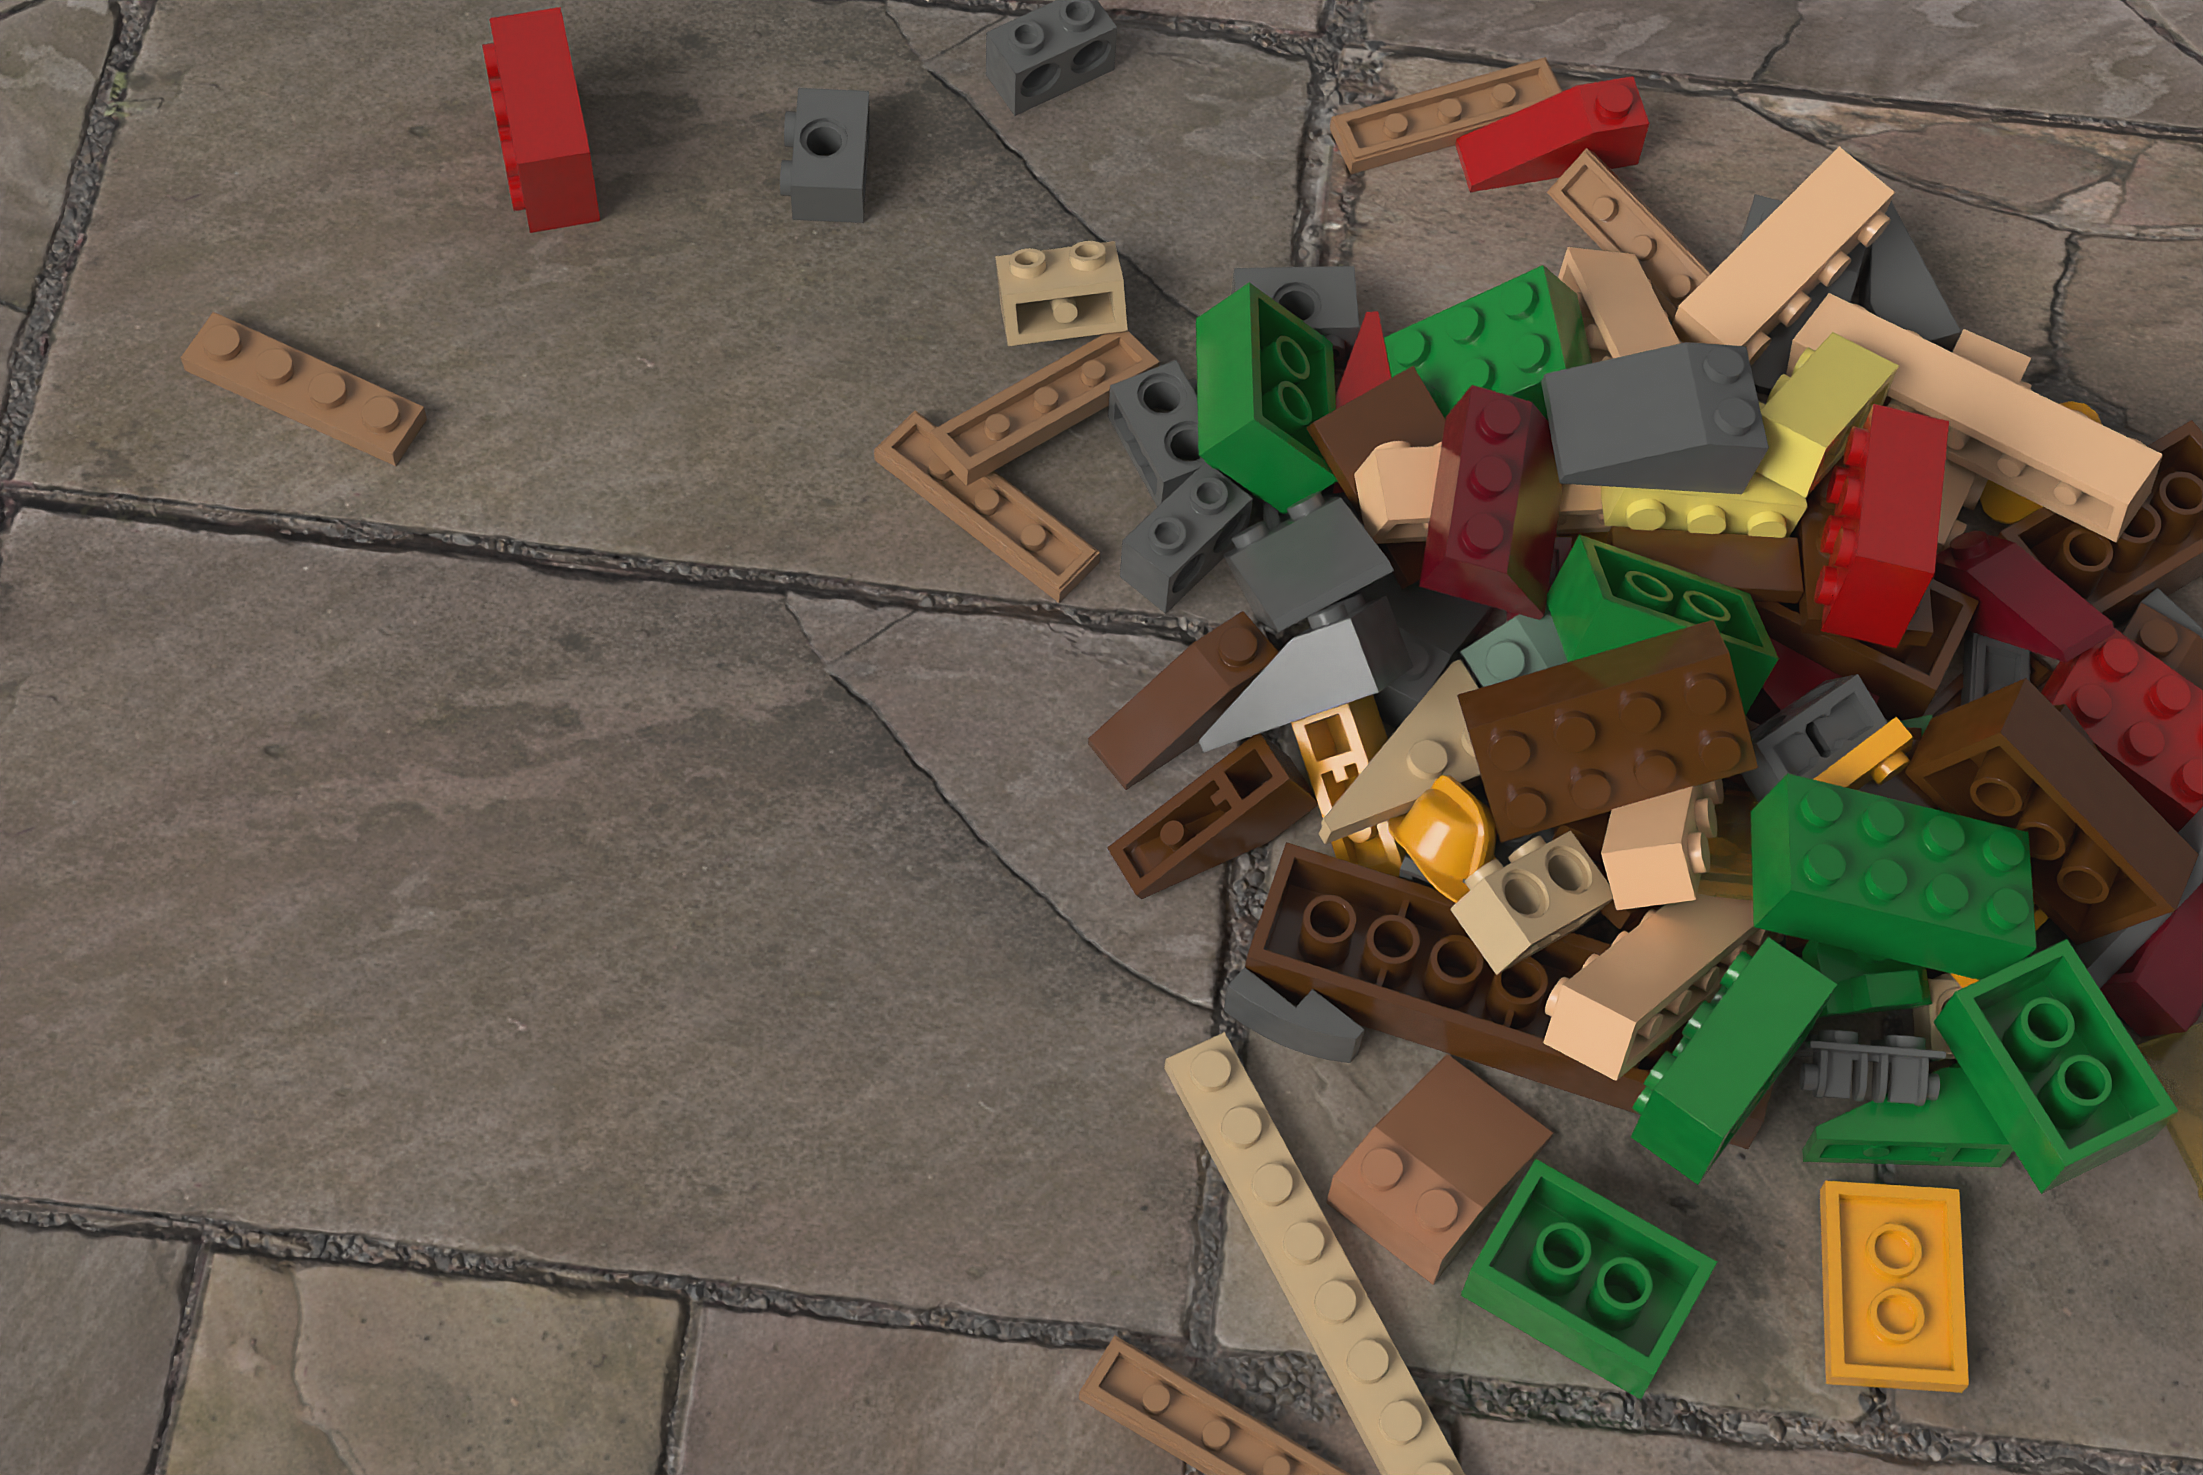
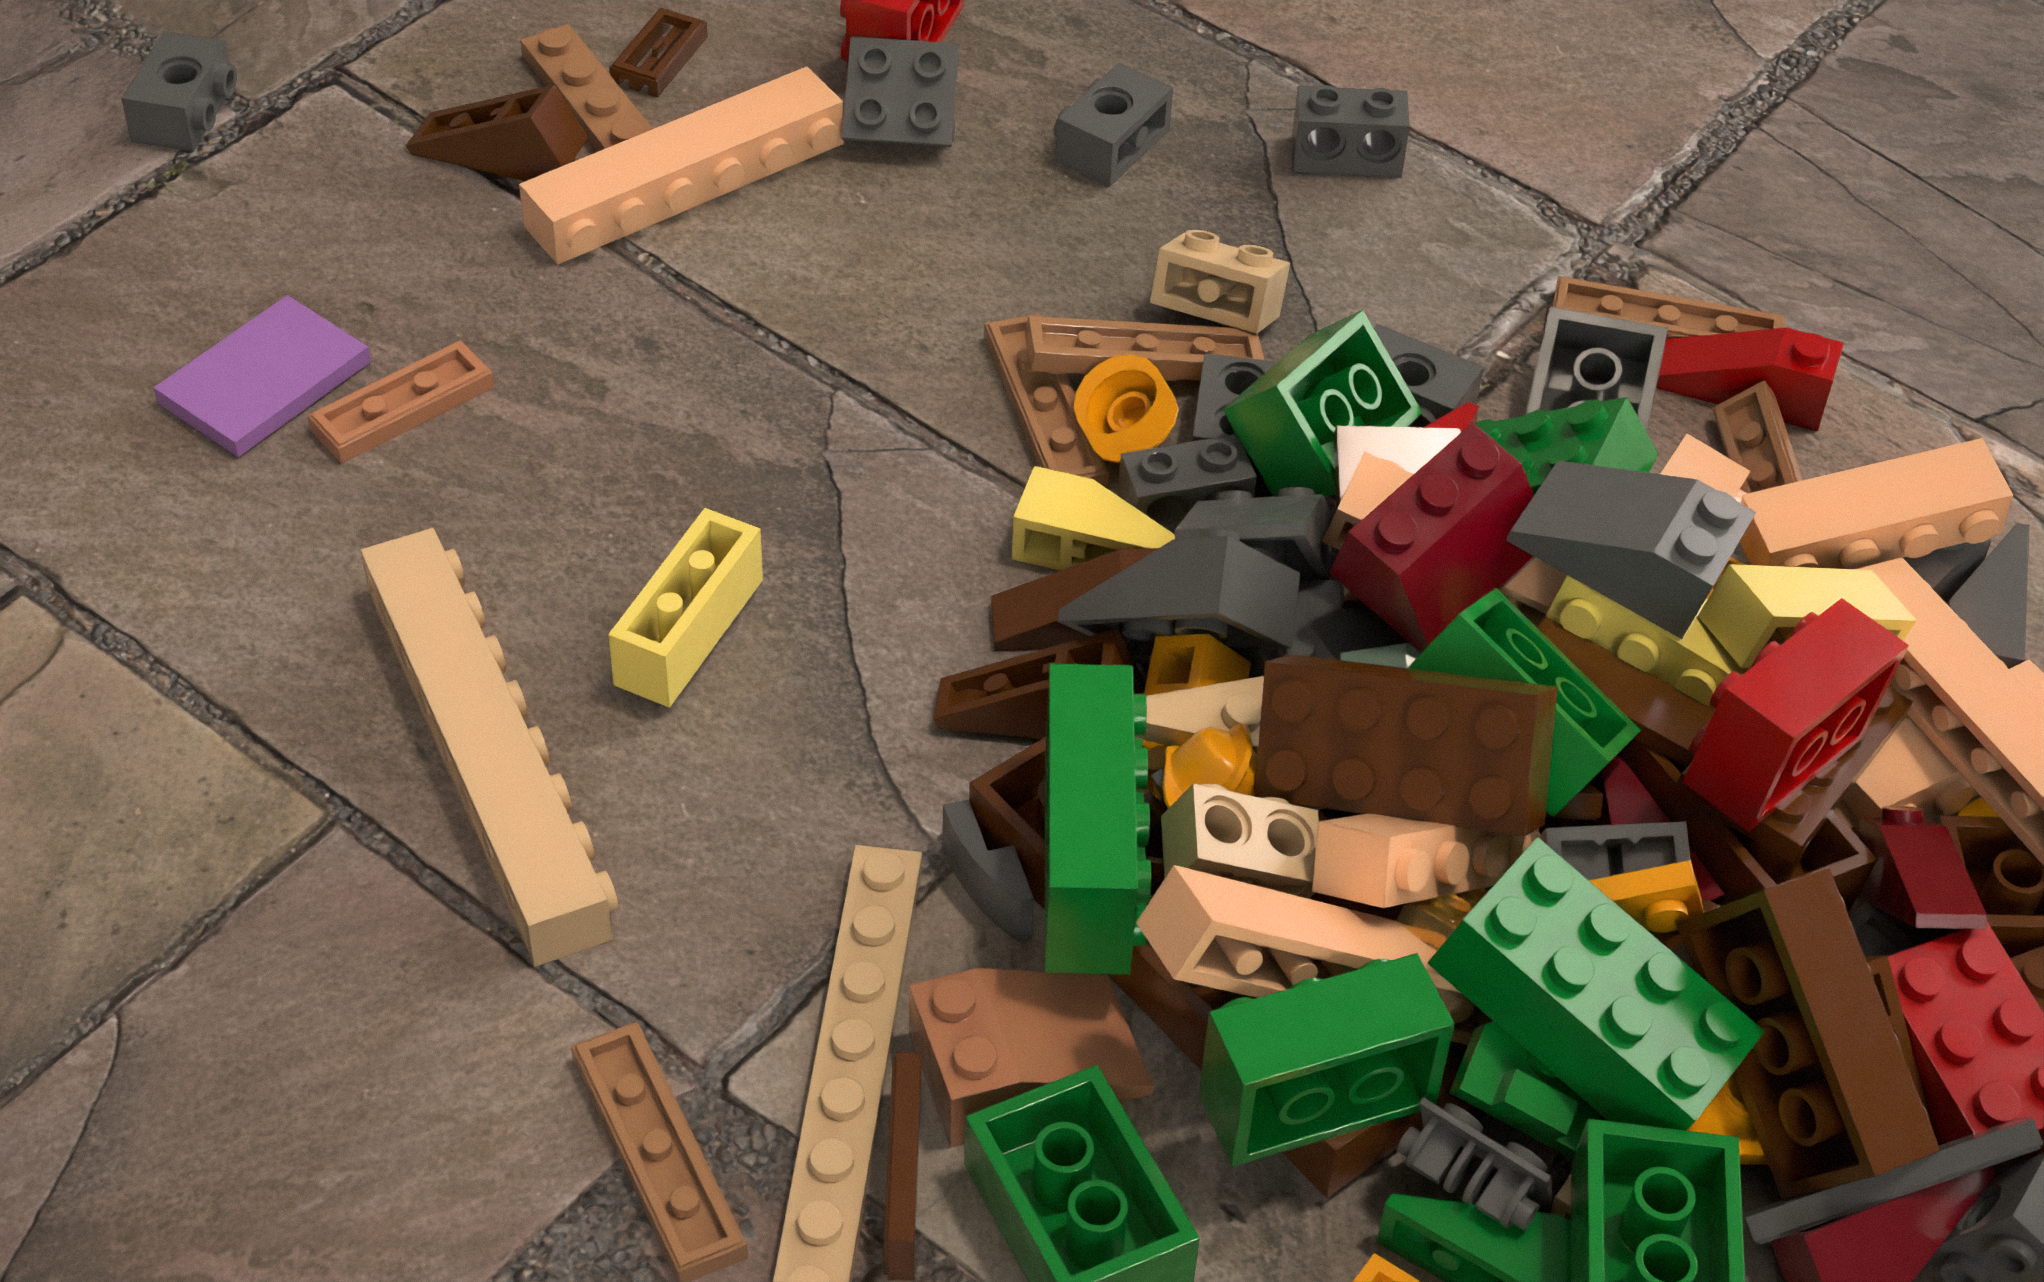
camera: 35 degrees right, 15 degrees down
(246, 887) = (262, 375): none -> medium lavender tile
(259, 486) = (504, 135): none -> reddish brown slope
(327, 335) = (667, 55): none -> reddish brown tile
(401, 839) = (400, 401): none -> nougat tile
(463, 425) = (681, 164): none -> light nougat brick
(618, 231) = (900, 92): none -> dark grey hinge
(779, 1150) = (488, 749): none -> tan brick
(858, 914) = (686, 607): none -> light yellow brick
(1084, 484) = (1124, 406): none -> light orange piece
(1131, 625) = (1075, 520): none -> light yellow slope
(1402, 946) = (1095, 819): none -> green brick
(1425, 1330) = (902, 1166): none -> reddish brown tile
(1449, 230) = (1597, 360): none -> dark grey slope

